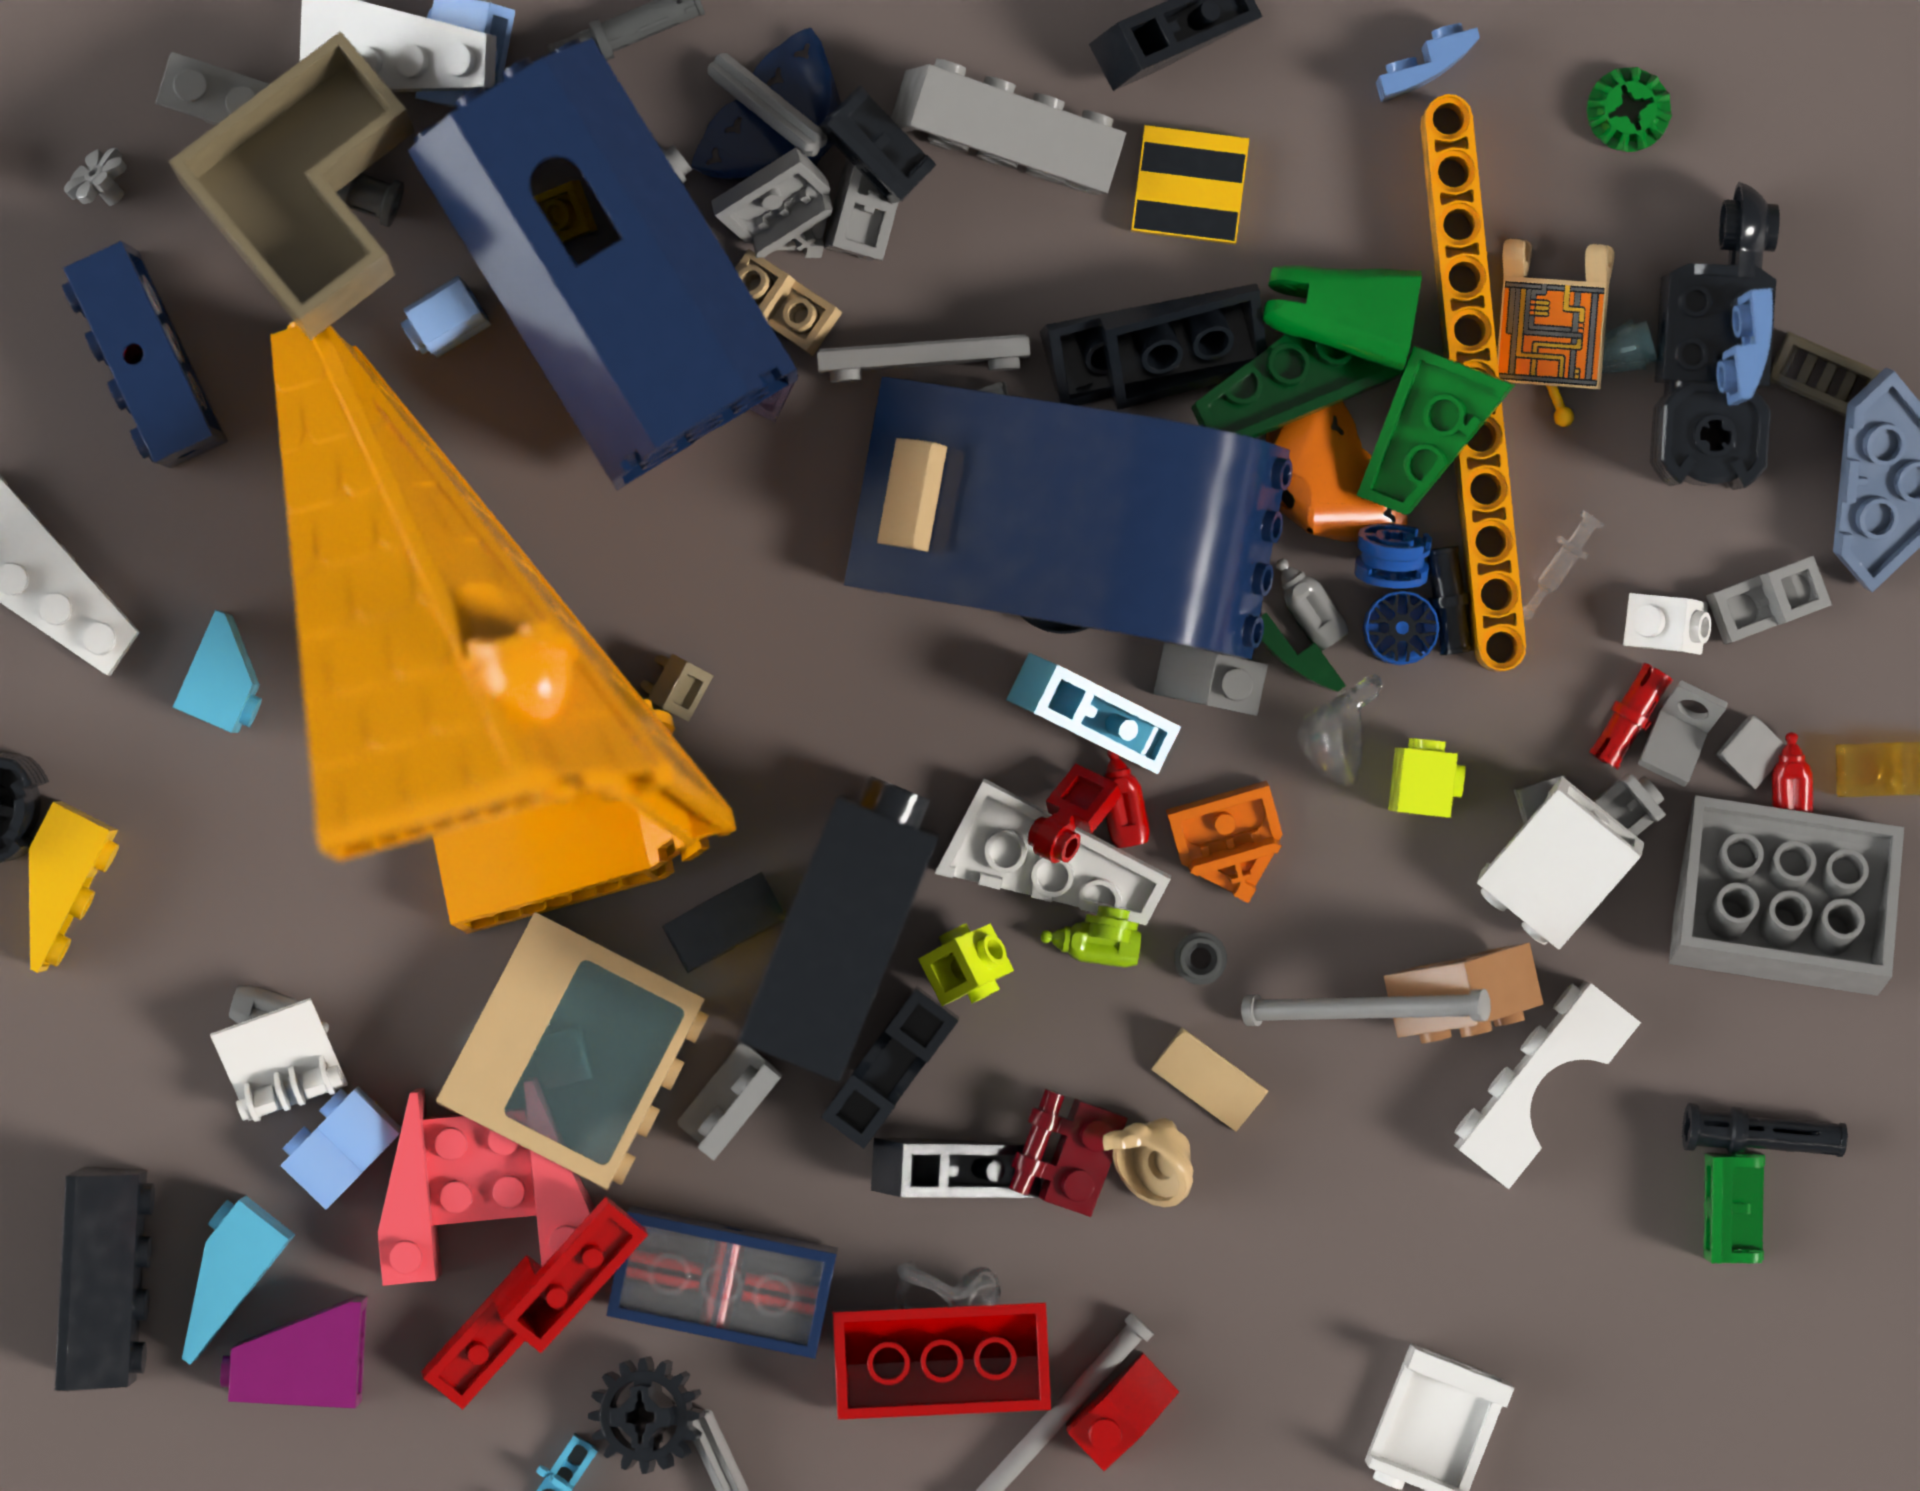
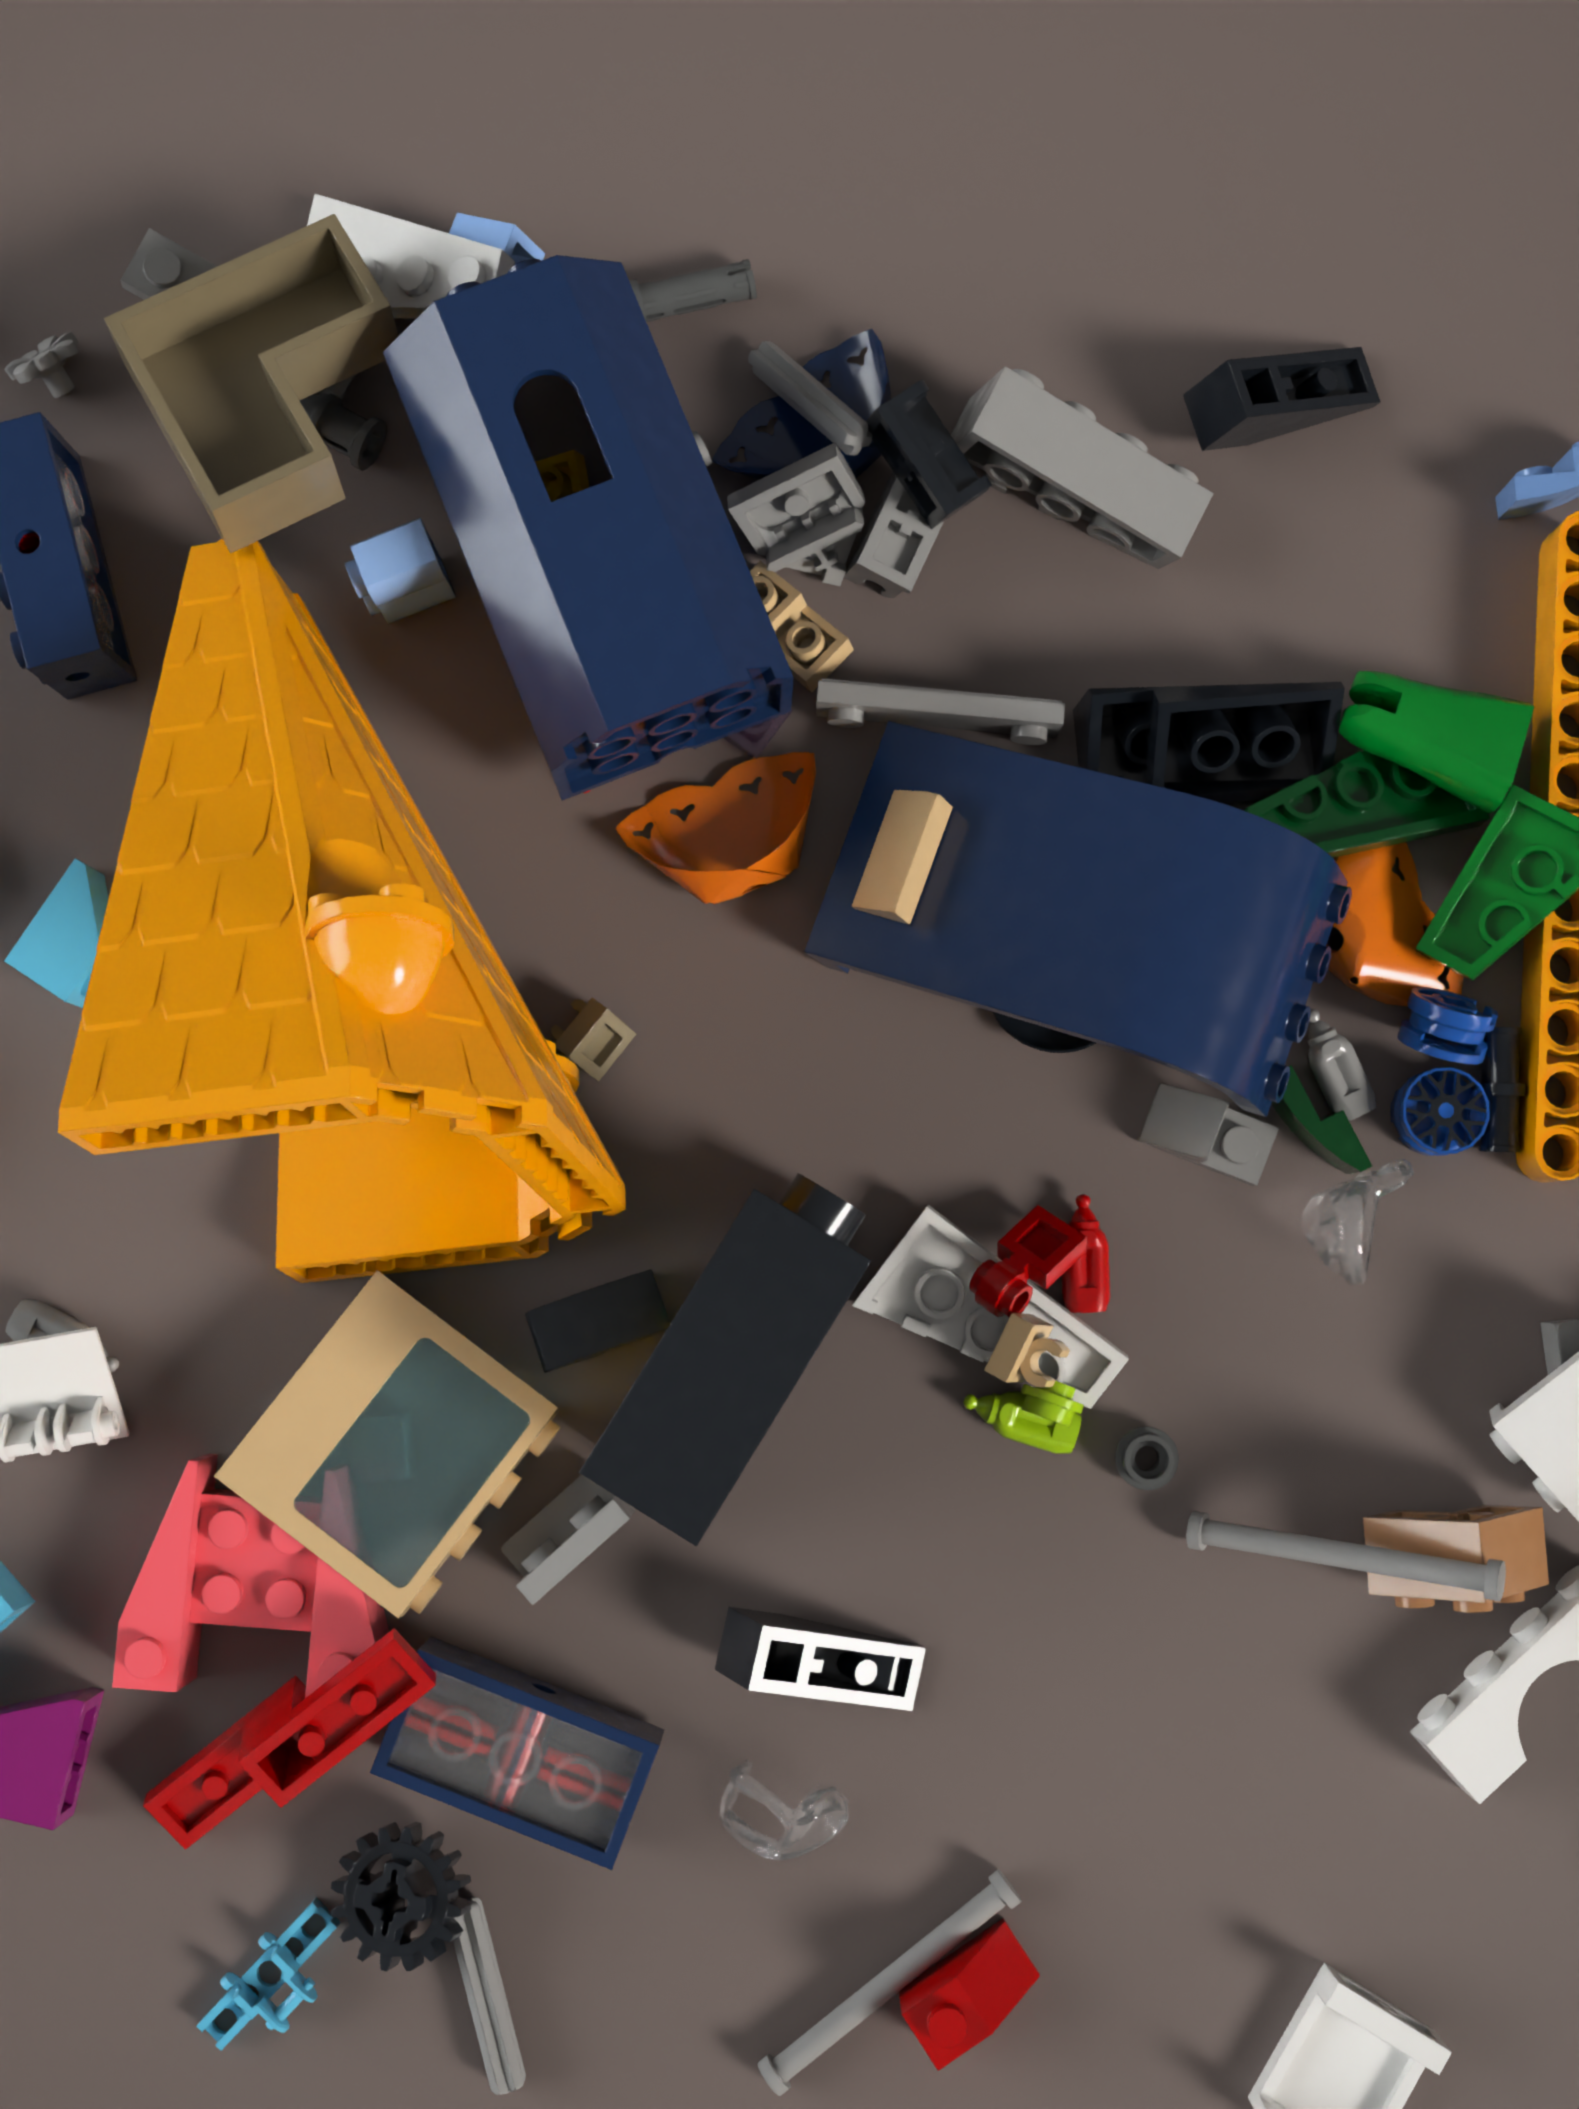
camera: 10 degrees right, 5 degrees down
(340, 1146) = (102, 1509): light blue brick -> none
(766, 491) = (732, 835): none -> orange piece
(890, 1067) = (761, 1526): black arch -> none
(941, 1361) = (764, 1899): red slope -> none
(966, 964) = (873, 1419): neon yellow brick -> none
(1078, 884) = (1020, 1348): none -> tan tile
(1079, 1161) = (968, 1672): dark red plate -> none
(1093, 713) = (1066, 1148): medium azure slope -> none
(1153, 1161) = (1056, 1694): tan hat -> none
(1190, 185) = (1271, 573): tile -> none
(1209, 1079) = (1135, 1604): tan slope -> none
(1228, 837) = (1201, 1321): orange slope -> none
(1425, 779) = (1450, 1292): neon yellow brick -> none

